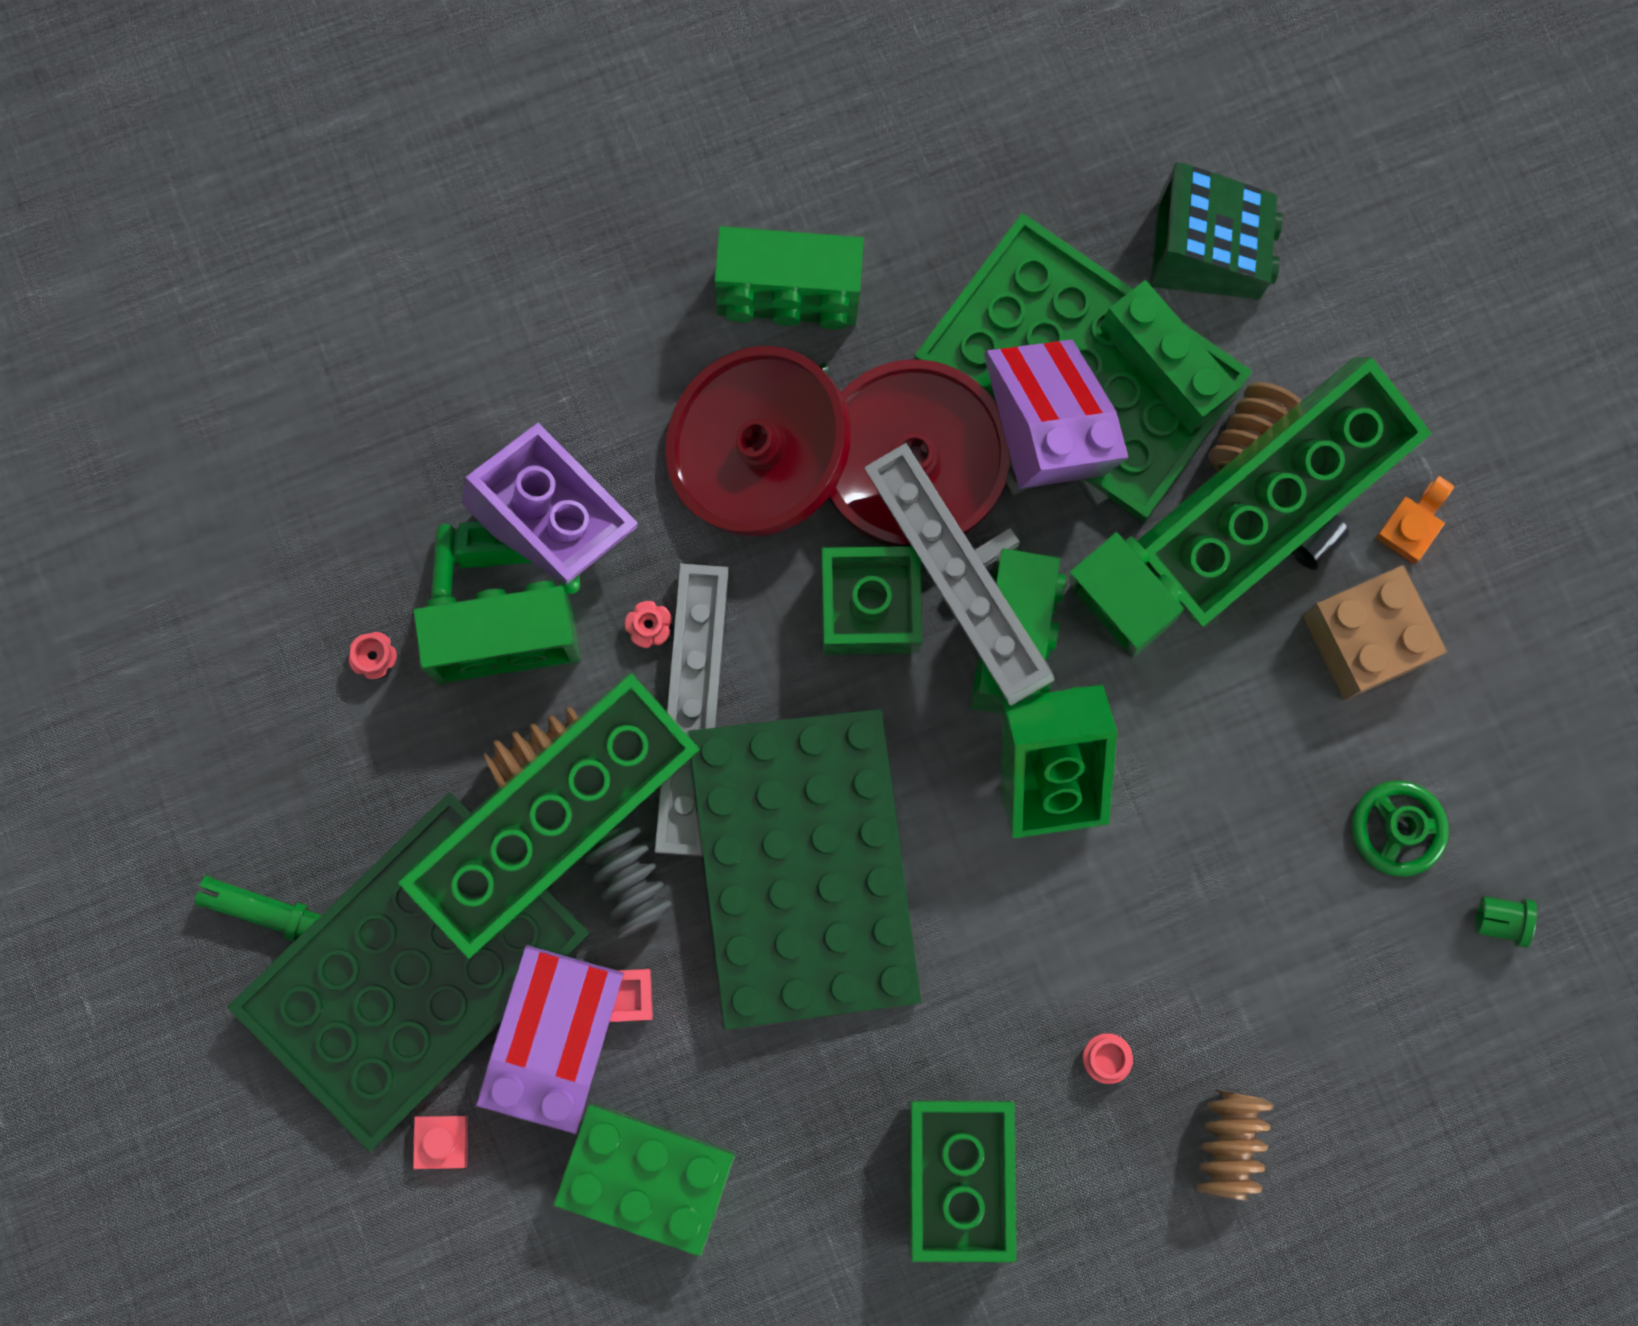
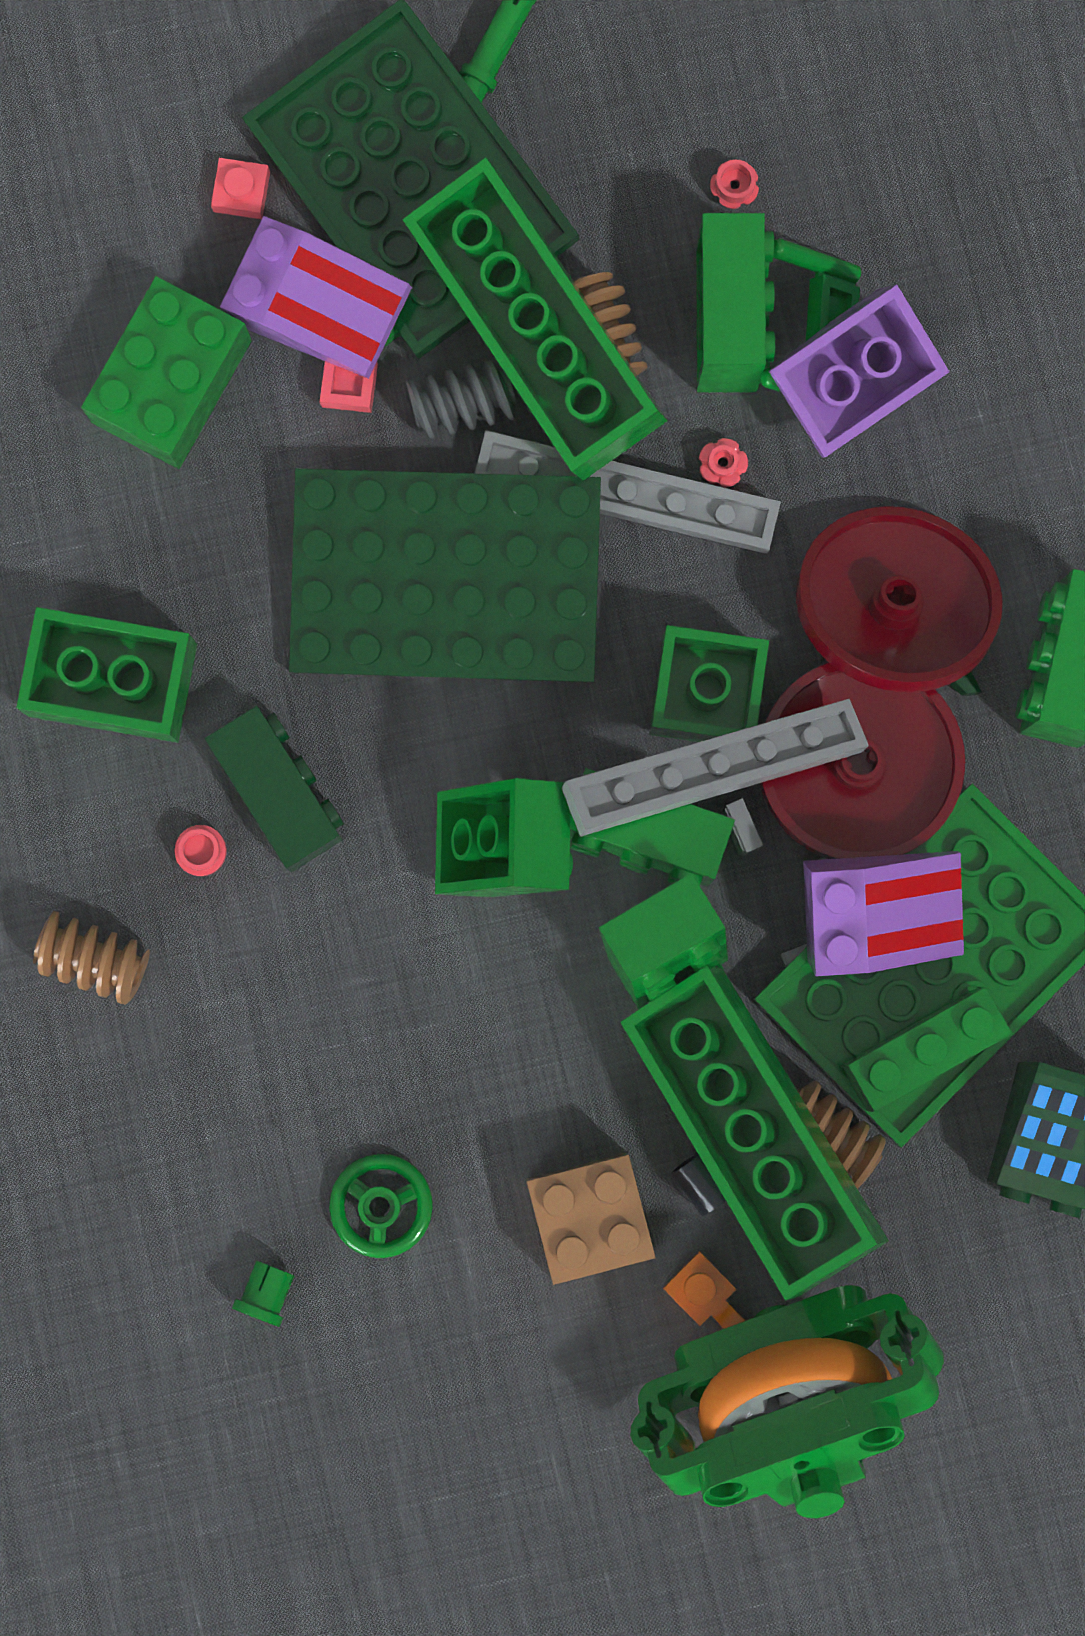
camera: 105 degrees right, 5 degrees up
(1037, 993) = (276, 787): none -> dark green brick
(1510, 424) = (790, 1401): none -> green piece

